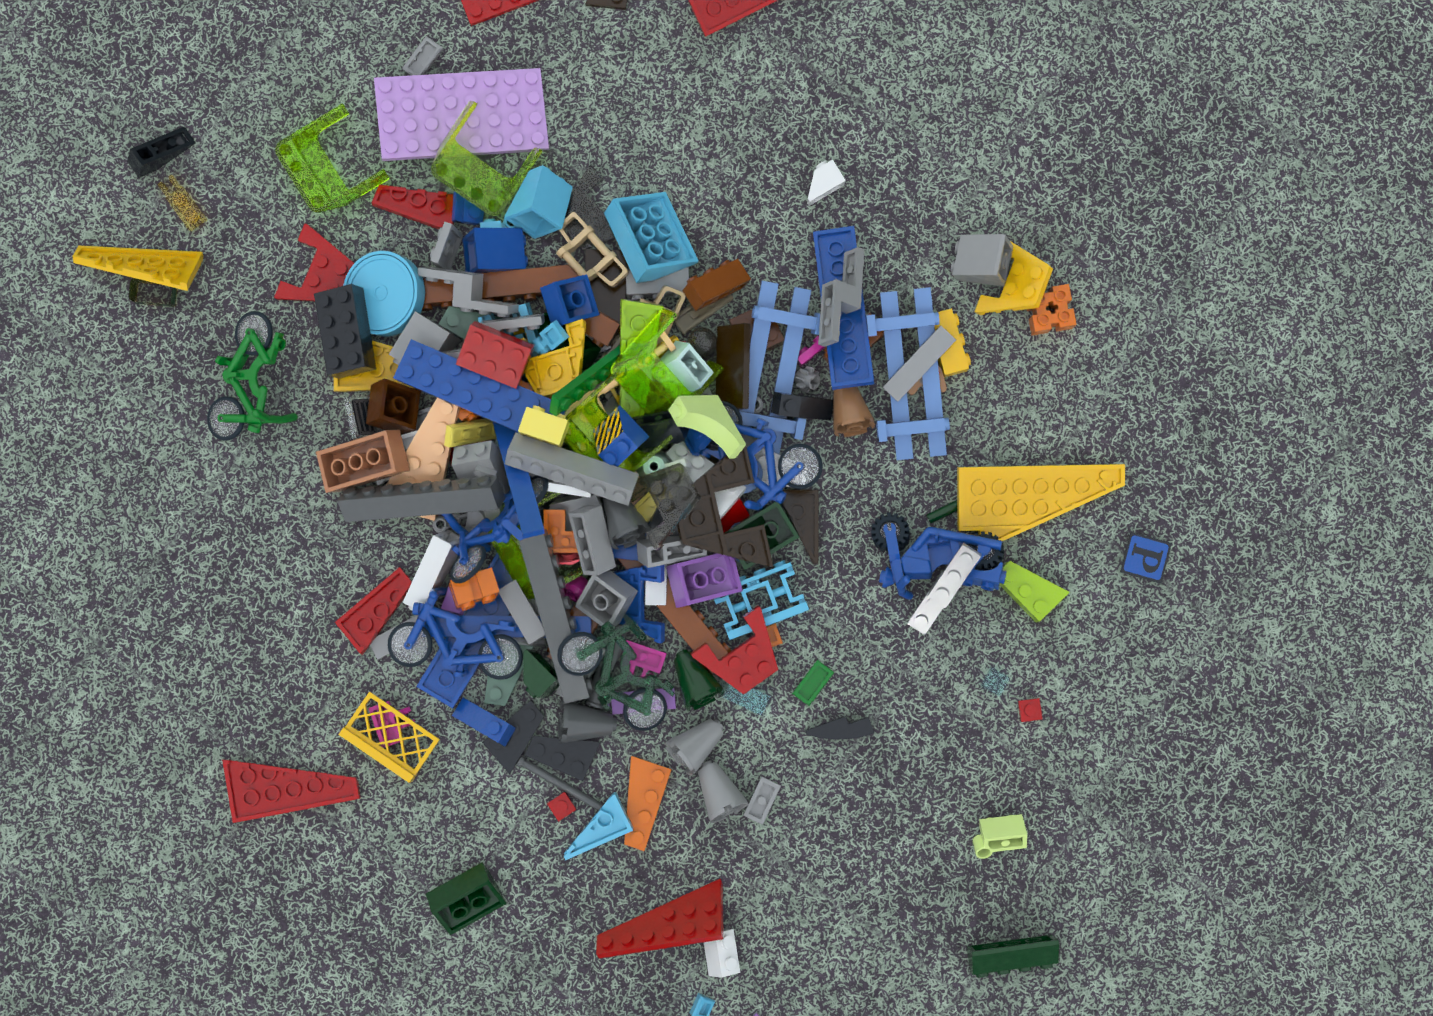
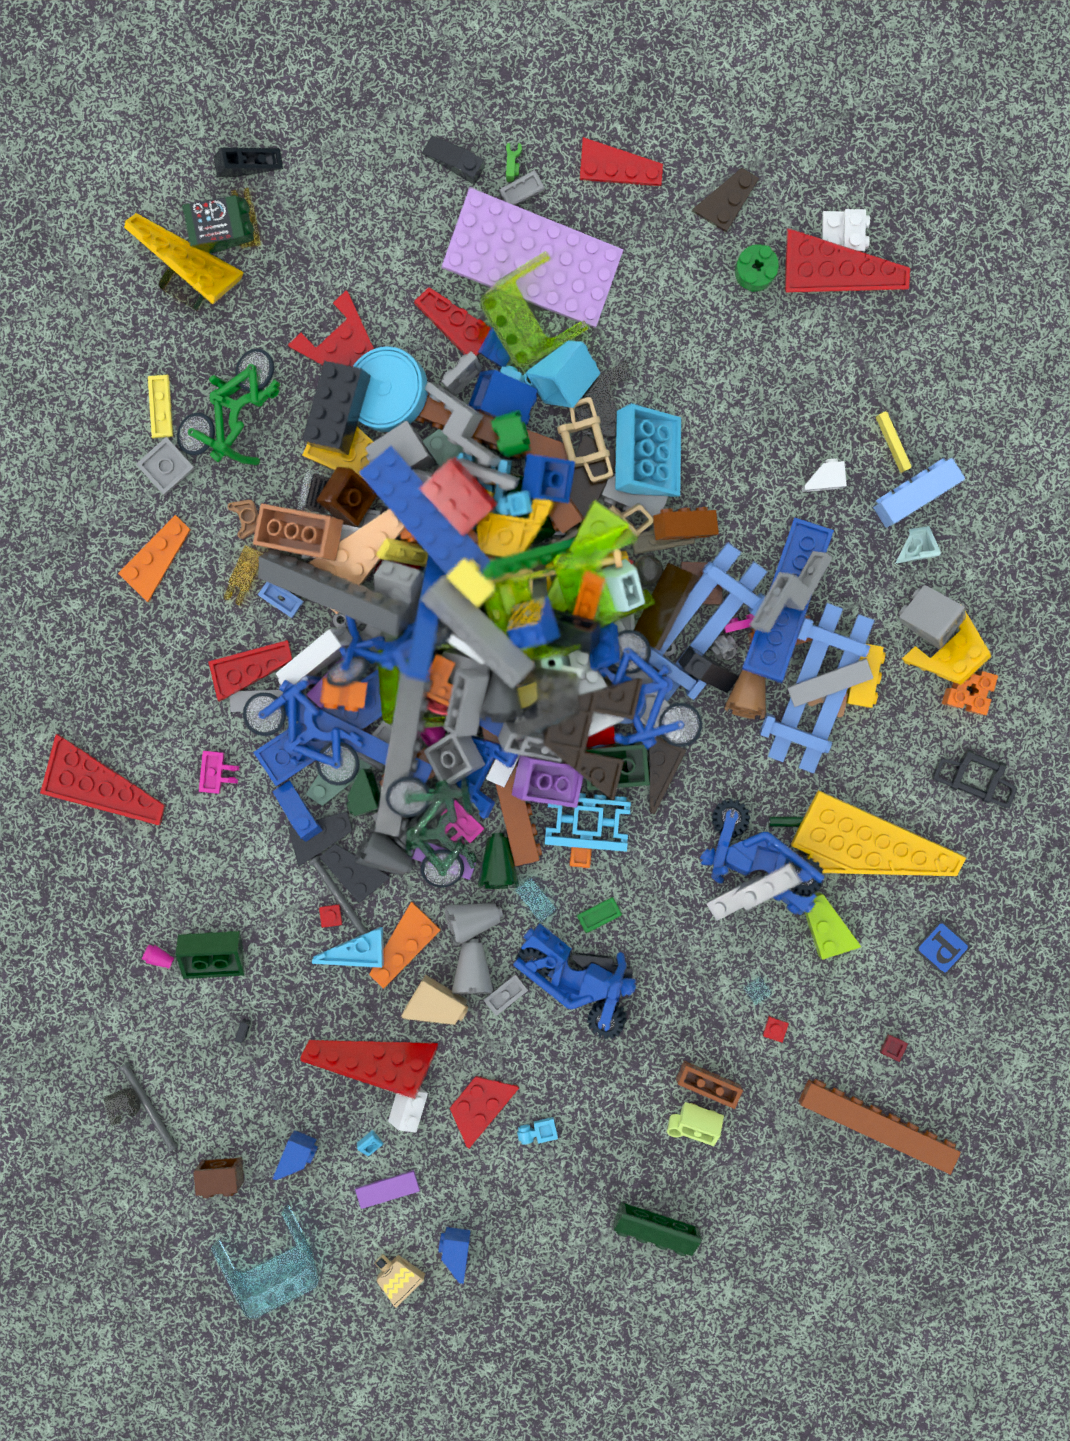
camera: 25 degrees right, 5 degrees up
(159, 218) = (218, 223): none -> slope
(181, 409) = (160, 406): none -> light yellow tile
(211, 461) = (165, 466): none -> light grey plate
(240, 553) = (152, 561): none -> orange wing
(309, 471) = (248, 516): none -> medium nougat piece
(313, 170) = (376, 247): clear neon green windscreen -> none
(330, 525) = (243, 573): none -> clear yellow hinge
(349, 60) = (454, 159): none -> black slope
(364, 529) = (291, 604): none -> medium blue piece
(375, 749) = (192, 791): yellow fence -> none
(404, 43) = (512, 167): none -> bright green plate
(415, 925) = (157, 957): none -> dark pink cone
(518, 277) = (512, 434): none -> green brick
(522, 612) = (375, 733): light grey tile -> none
(530, 957) = (243, 1030): none -> black tile
(658, 387) = (589, 595): none -> orange tile
(668, 15) = (763, 258): none -> green brick
(699, 840) = (435, 1004): none -> tan slope
(709, 417) = (622, 645): yellowish green arch -> none
(748, 662) = (549, 872): red wing -> none
(788, 919) = (479, 1106): none -> red wing
(823, 759) = (572, 987): none -> blue piece
(860, 912) = (544, 1131): none -> medium azure plate
(869, 122) = (893, 442): none -> light yellow tile
(915, 152) = (914, 495): none -> light blue brick
(939, 203) = (919, 546): none -> light aqua slope
(993, 791) = (709, 1084): none -> dark orange brick
(1114, 399) = (986, 796): none -> black bar
(1148, 673) = (893, 1047): none -> dark red plate
(1175, 753) = (879, 1126): none -> dark orange brick

